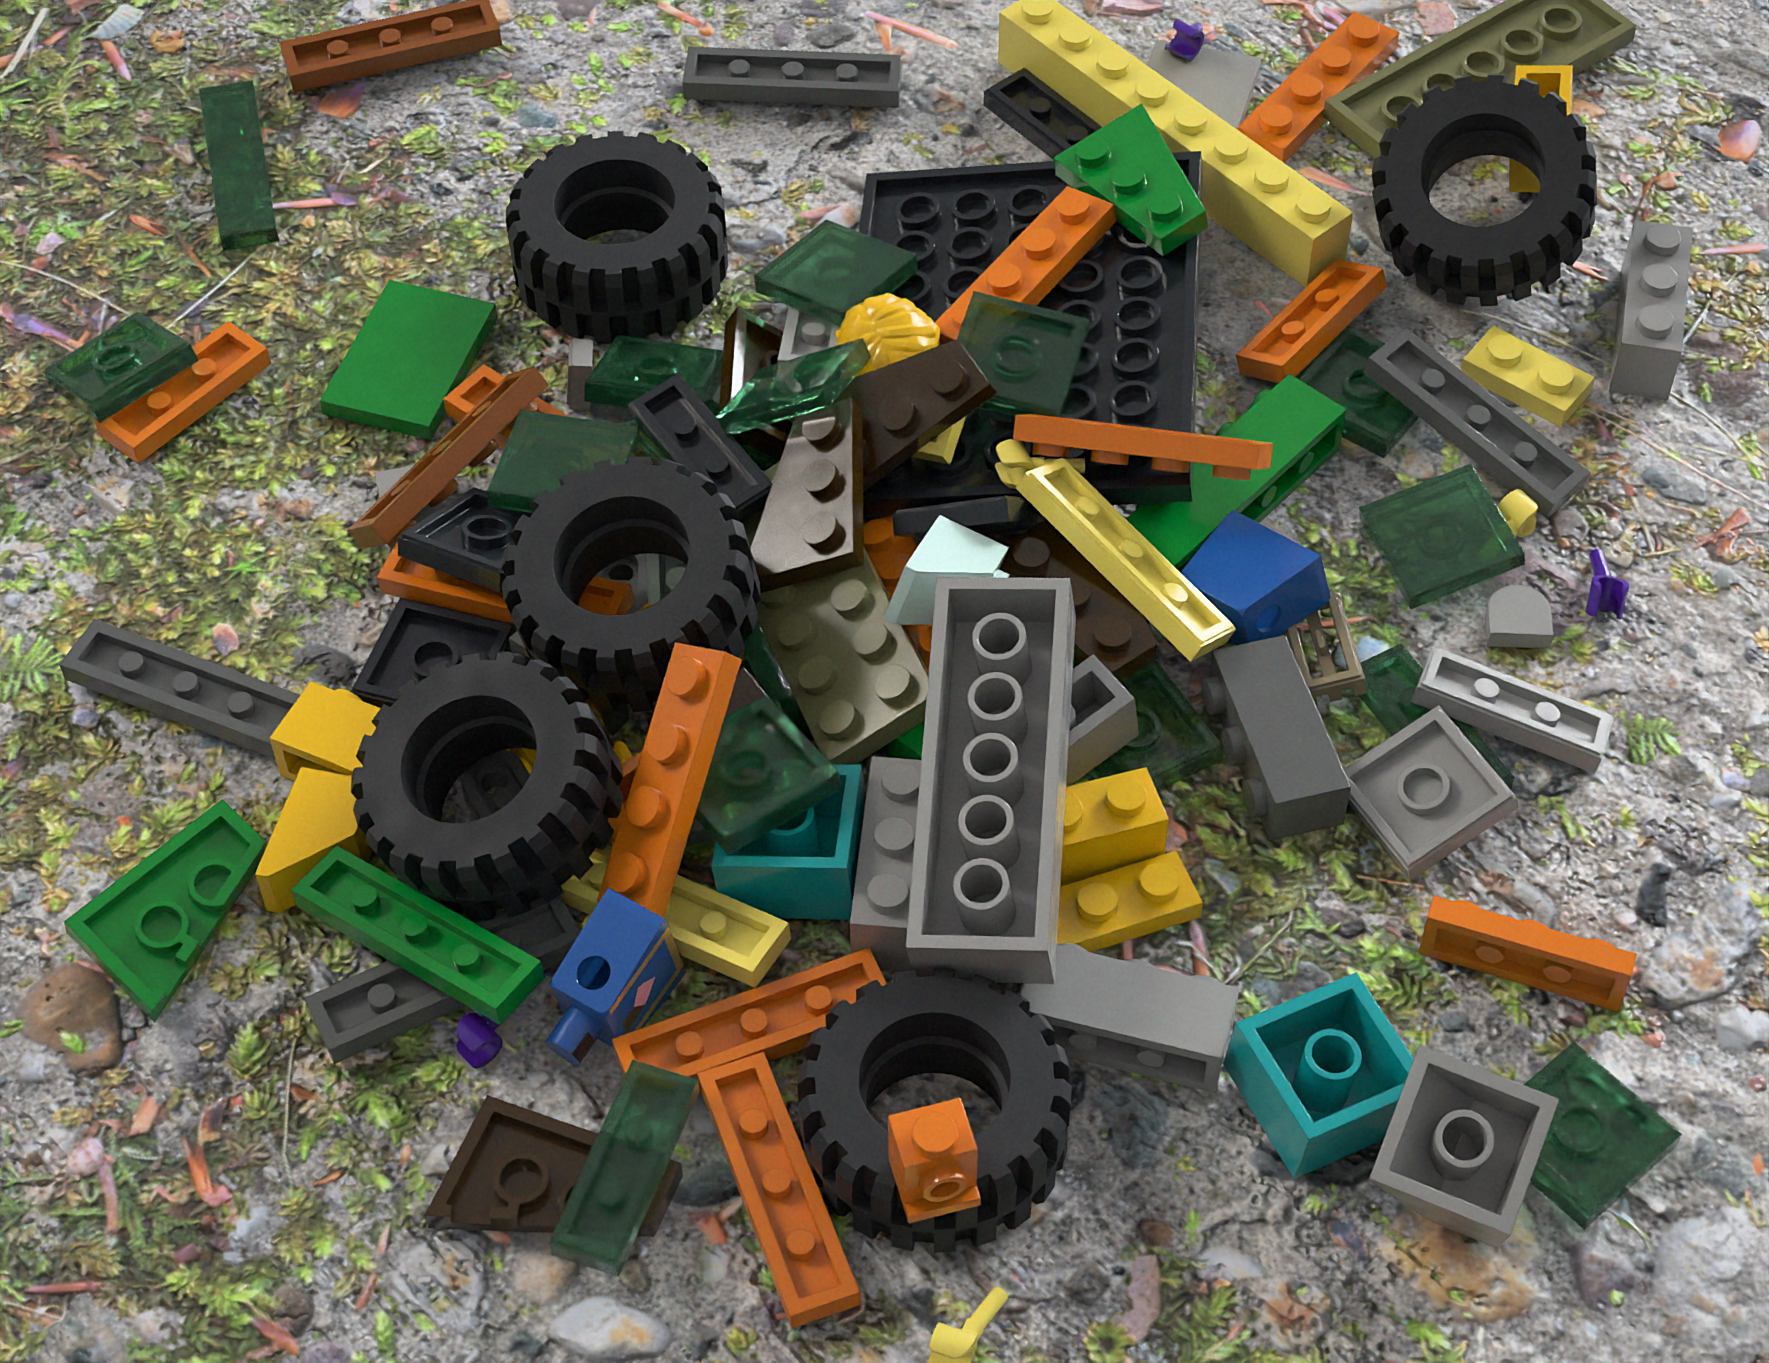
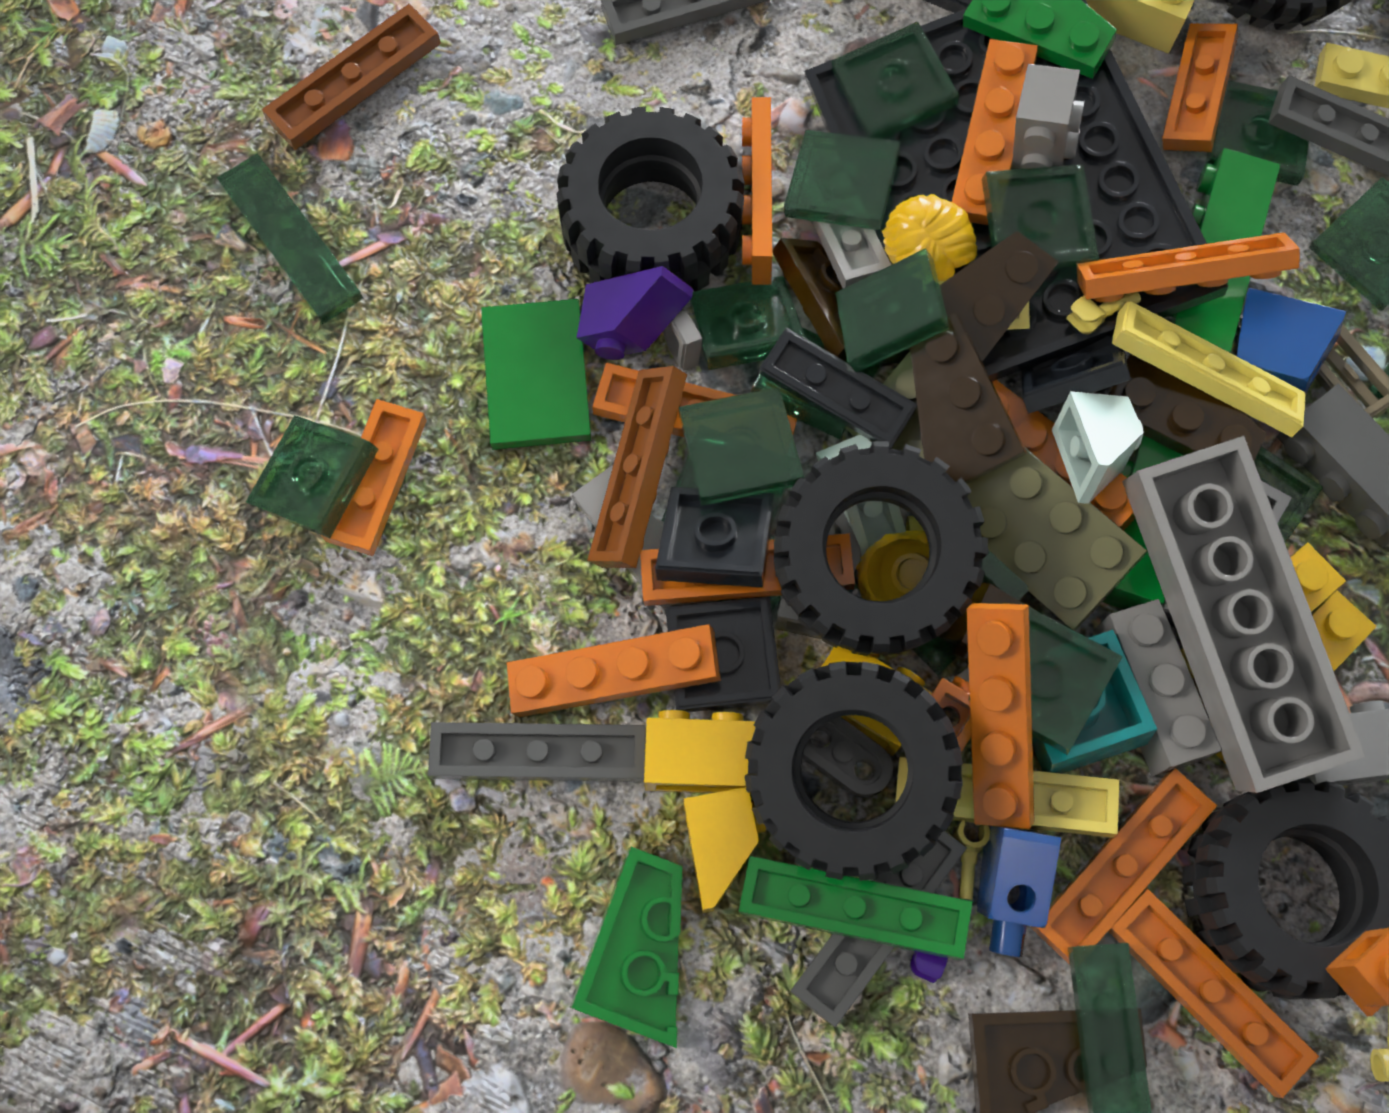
camera: 25 degrees left, 20 degrees up
(309, 636) = (613, 671): none -> orange plate
(533, 320) = (630, 311): none -> dark purple slope
(731, 274) = (758, 205): none -> orange plate
(949, 203) = (895, 82): none -> clear green tile
(1063, 255) = (1047, 118): none -> light grey brick

